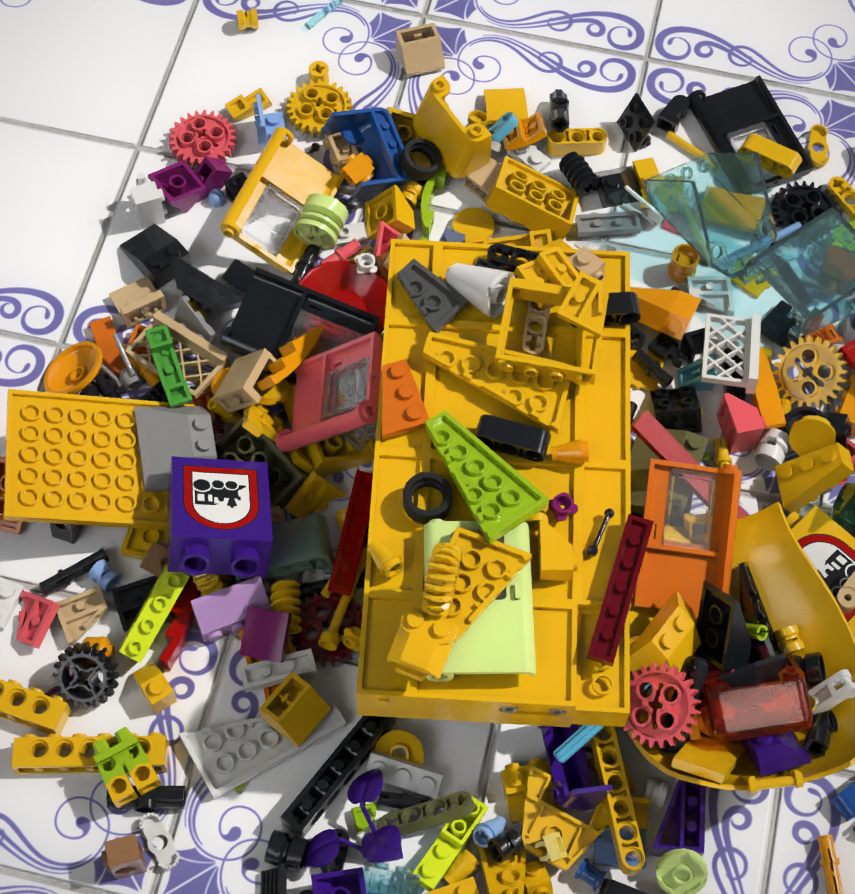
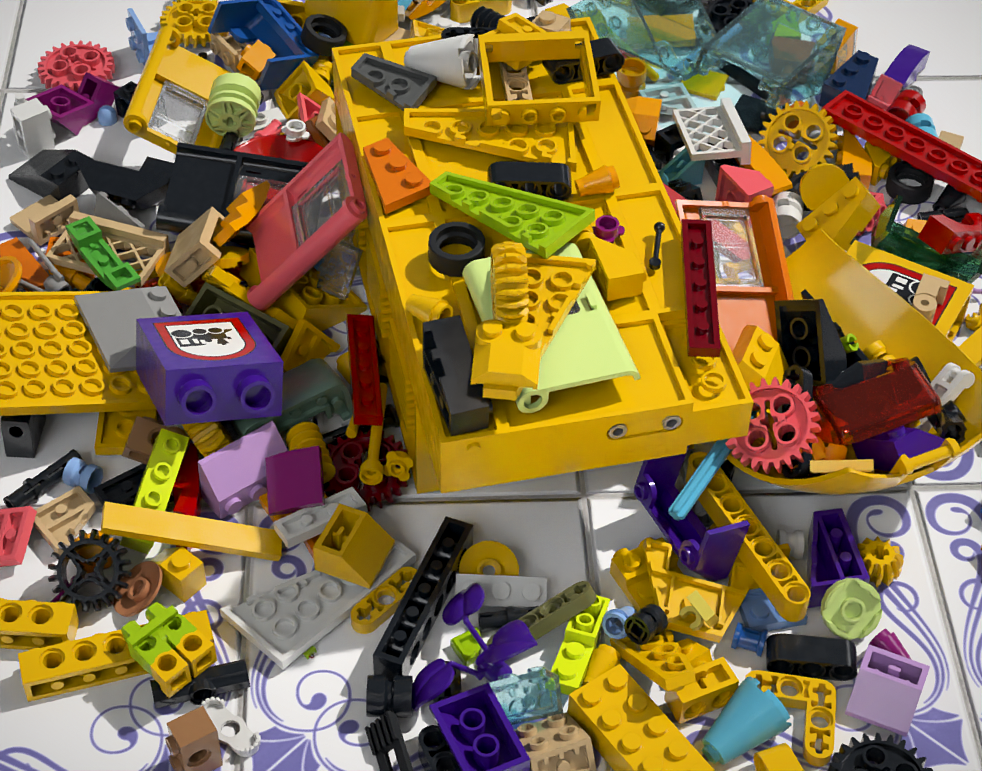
camera: 15 degrees left, 15 degrees down
(123, 700) = (142, 589): none -> nougat dish
(170, 660) = (190, 531): none -> yellow tile
(242, 107) = (112, 36): yellow slope -> none
(292, 758) = (381, 612): none -> yellow beam
(380, 631) = (449, 371): none -> black wedge
(584, 304) = (567, 41): yellow wing -> none
(732, 829) = (881, 560): none -> yellow gear

